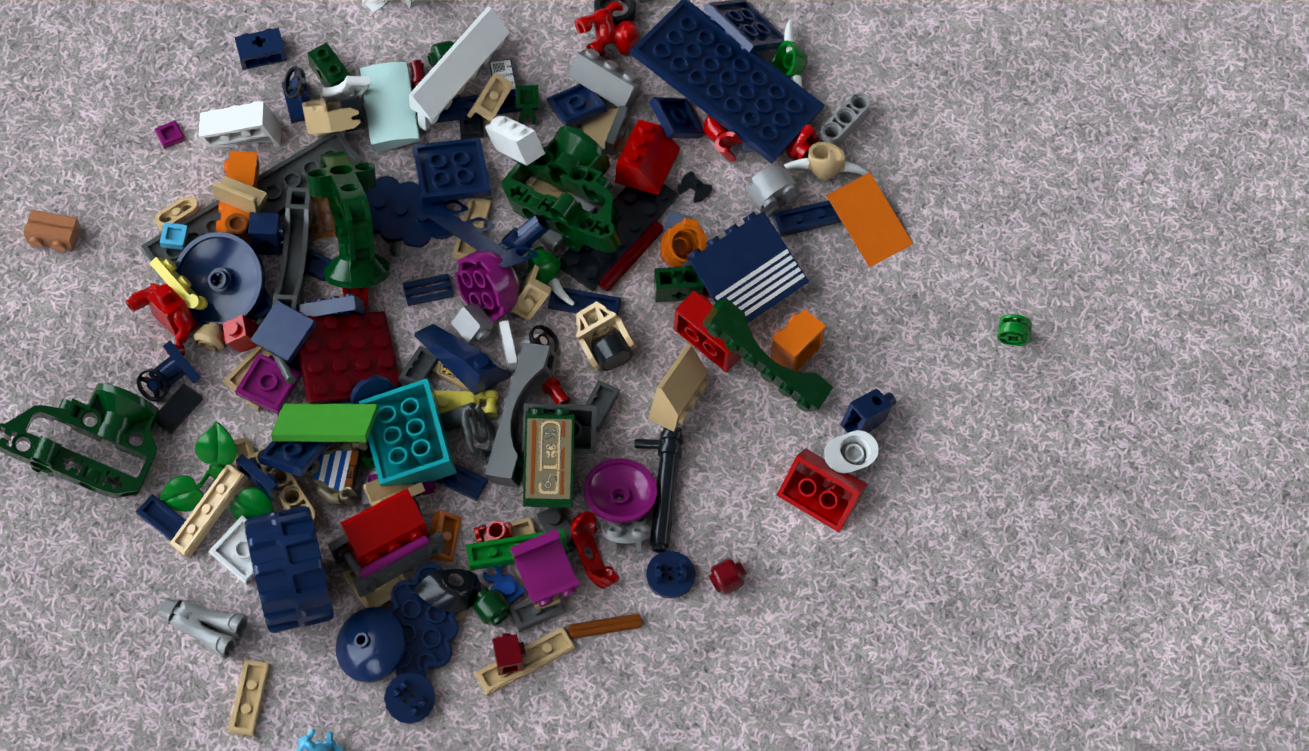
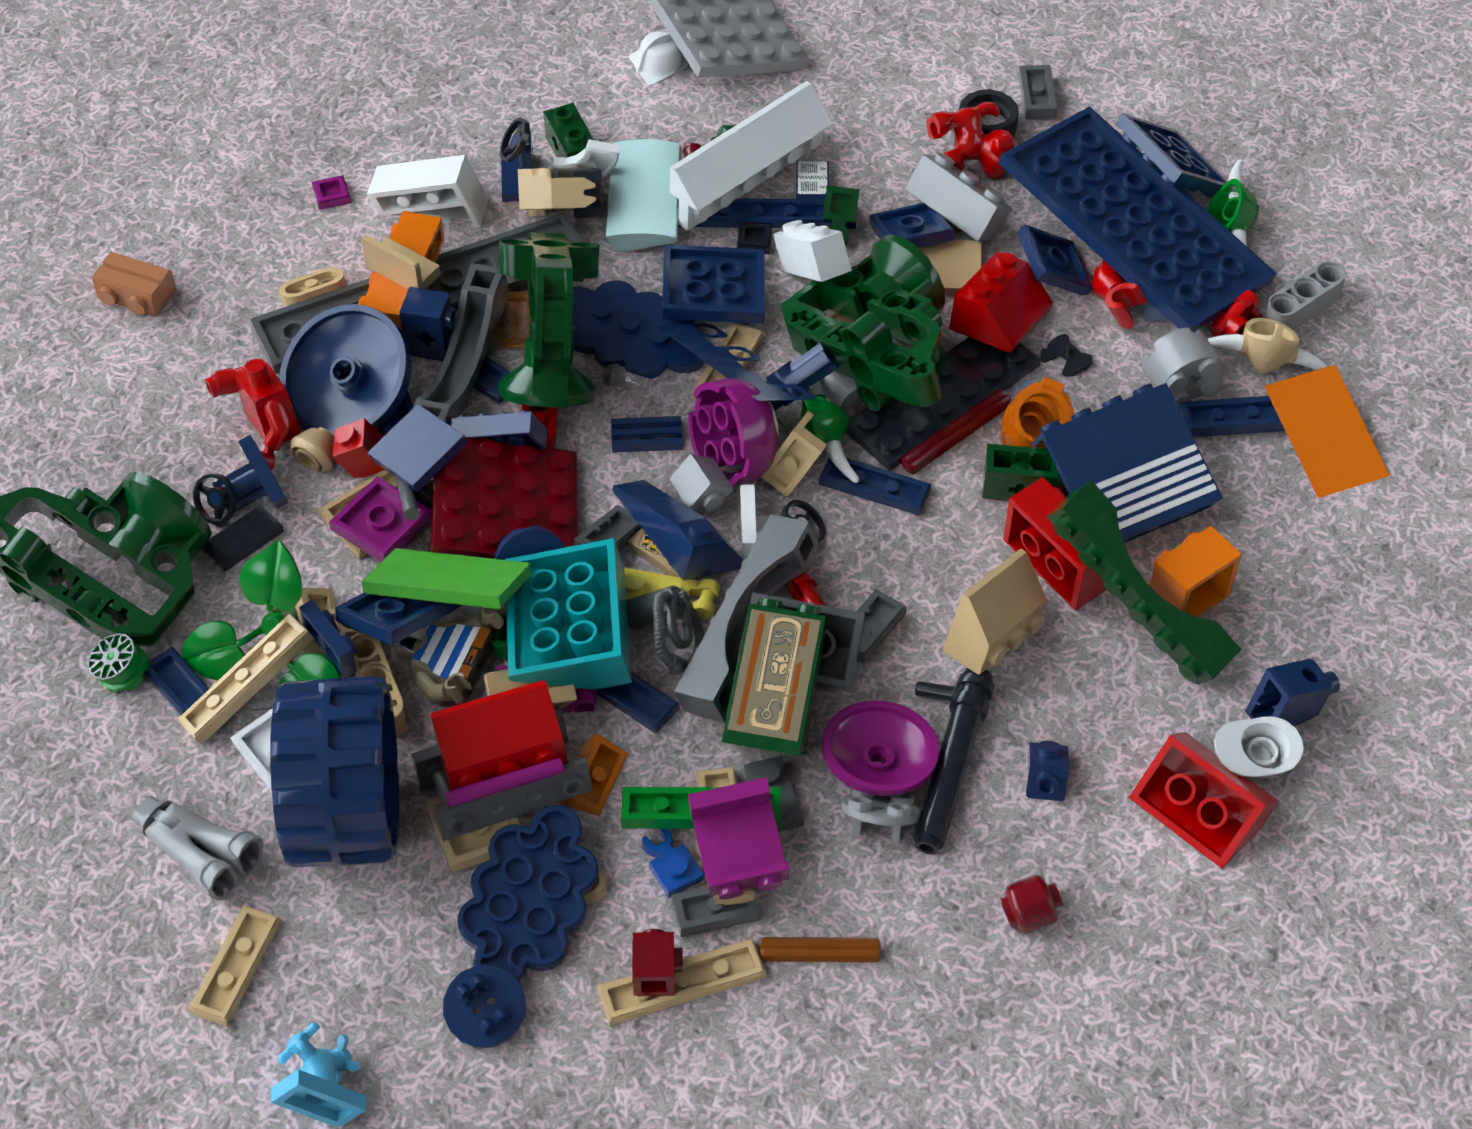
camera: 15 degrees right, 10 degrees down
(121, 512) = (118, 663): none -> green wheel
(174, 236) = (297, 309): medium azure plate -> none
(178, 283) = (286, 368): light yellow plate -> none
(237, 224) = (387, 300): dark orange tile -> none
(260, 48) = (481, 104): dark blue brick -> none
(382, 647) = (453, 923): dark blue dish -> none
(443, 595) = (571, 856): black piece -> none
(491, 97) = (789, 197): tan panel -> none
(491, 606) = (644, 888): dark green head -> none
(493, 531) = (672, 774): red plate -> none
(582, 534) = (809, 798): red piece -> none
(611, 351) = (900, 546): tan piece -> none
(617, 130) = (963, 263): dark grey plate -> none
(658, 574) = (958, 889): dark blue plate -> none
(724, 486) = (1047, 771): none -> dark blue bracket

